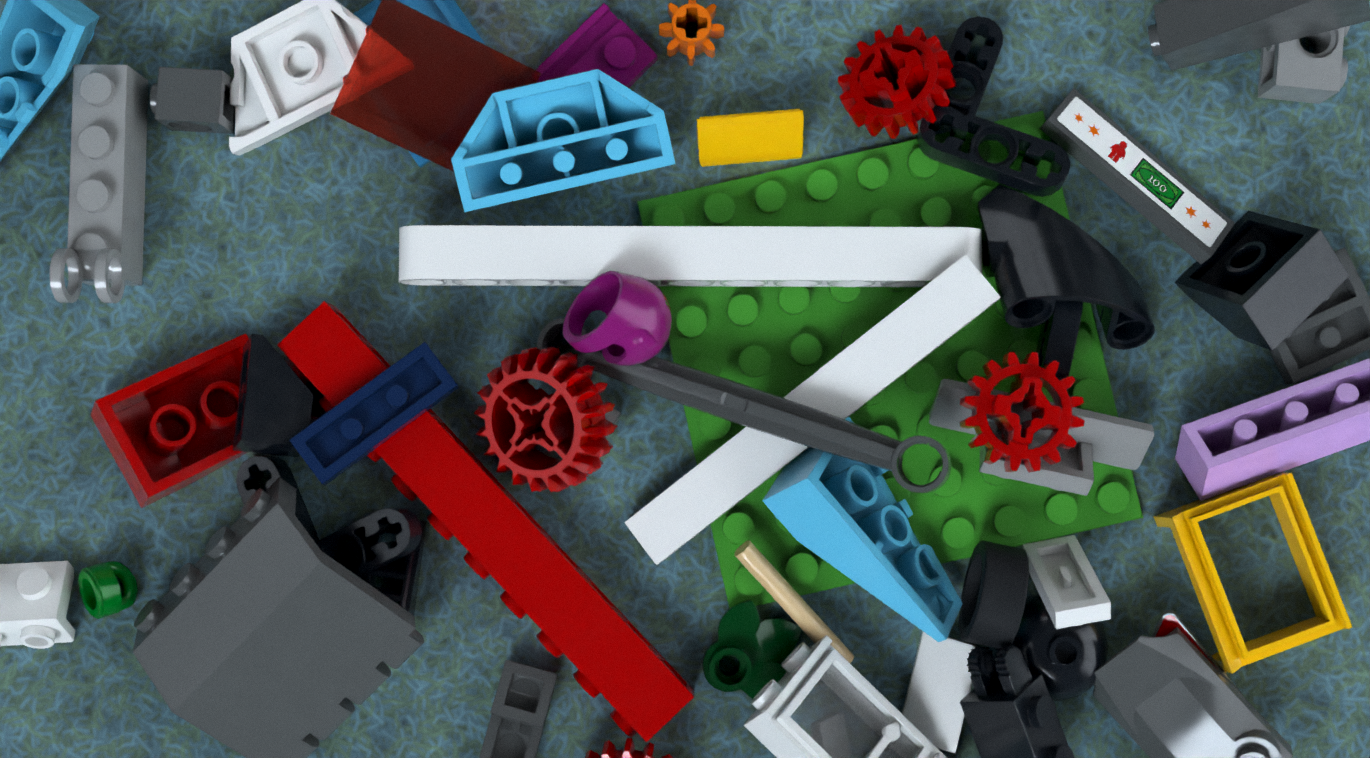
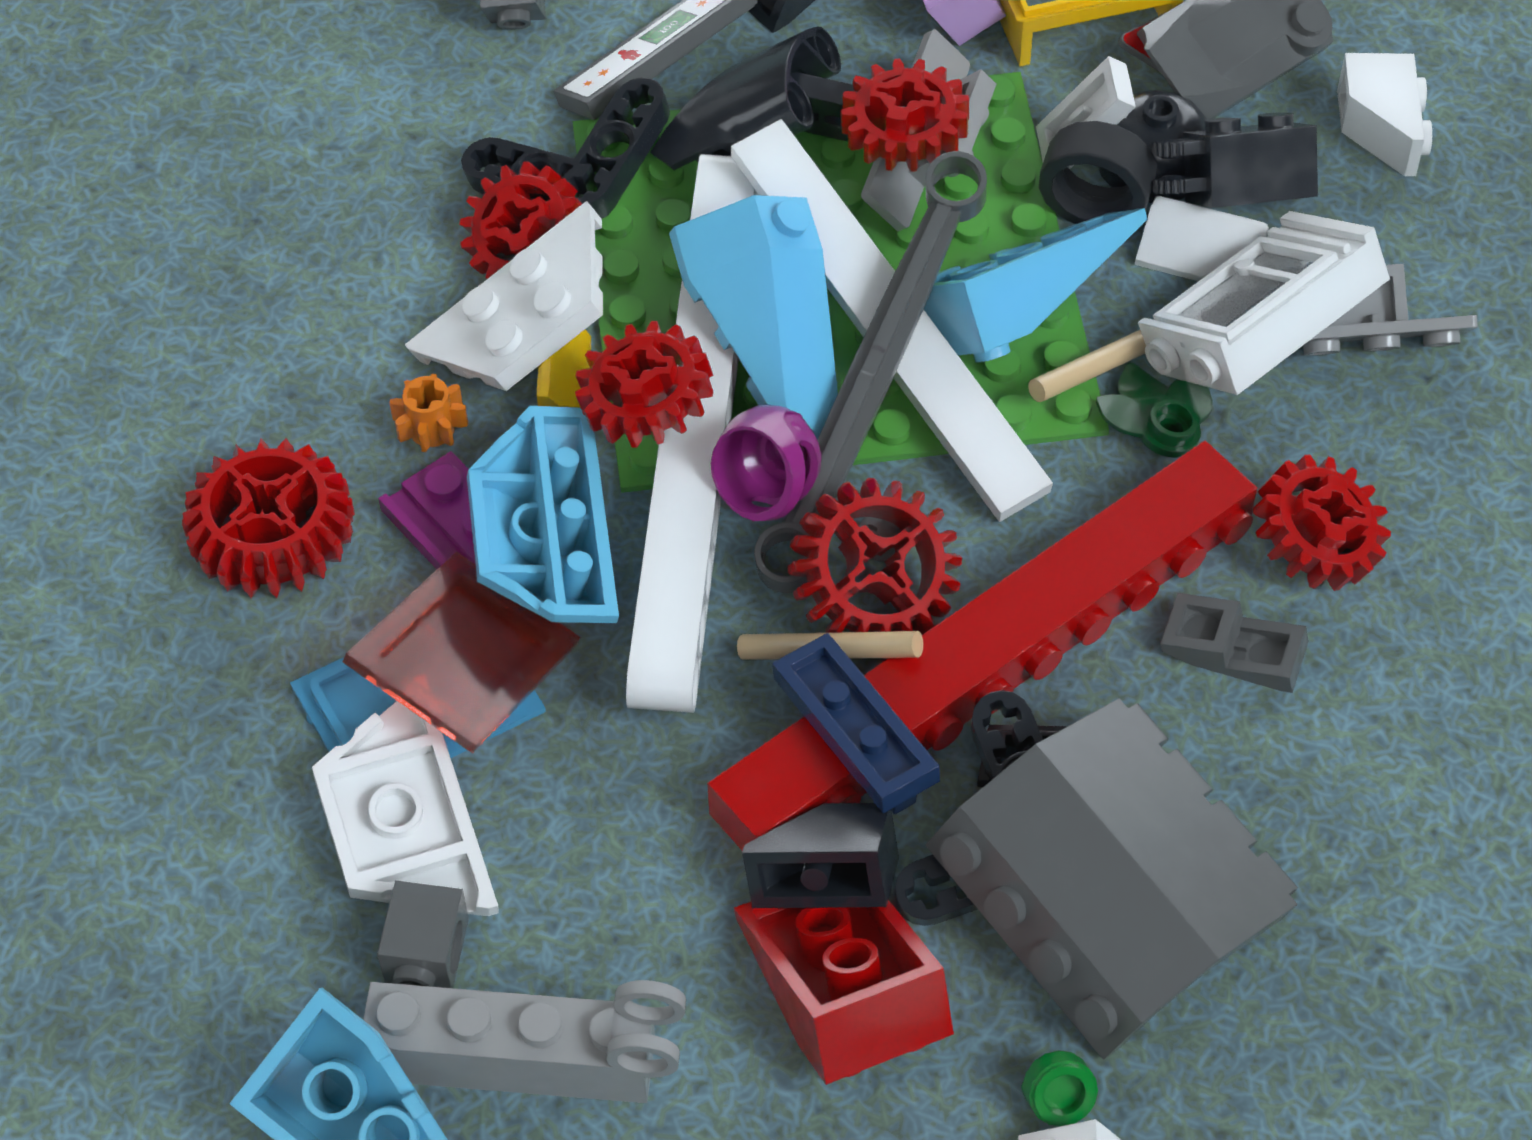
camera: 85 degrees left, 30 degrees down
(469, 385) = (855, 644): none -> tan bar
(710, 206) = (644, 384): none -> red gear
(790, 93) = (523, 308): none -> white wing
(793, 304) = (767, 291): none -> medium azure wedge

